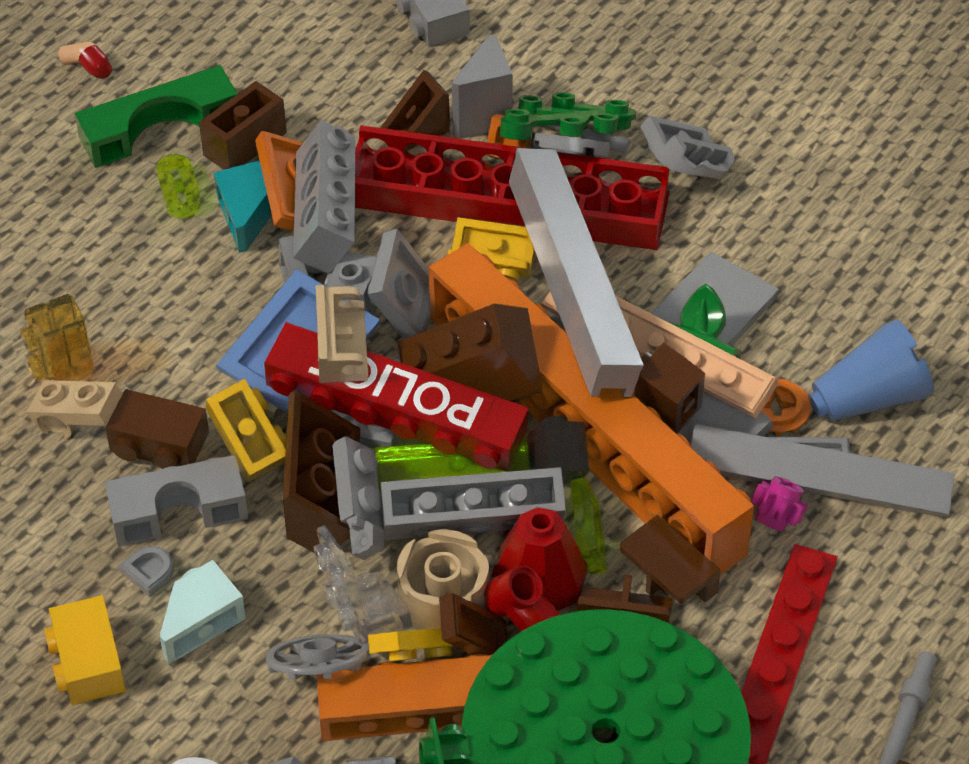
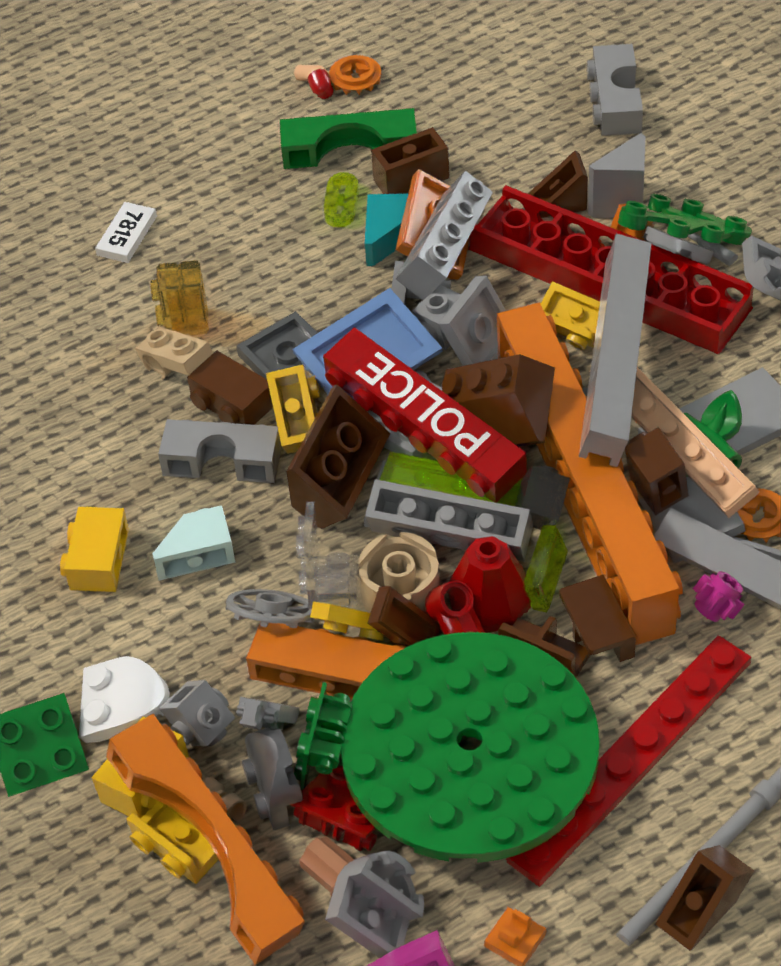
camera: 25 degrees right, 0 degrees up
(134, 31) = (366, 67): none -> orange gear
(148, 569) = (177, 499): light grey tile -> none
(188, 368) = (274, 346): none -> dark grey plate
(341, 335) = (390, 348): tan hinge -> none
(359, 496) = (364, 465): light grey hinge -> none

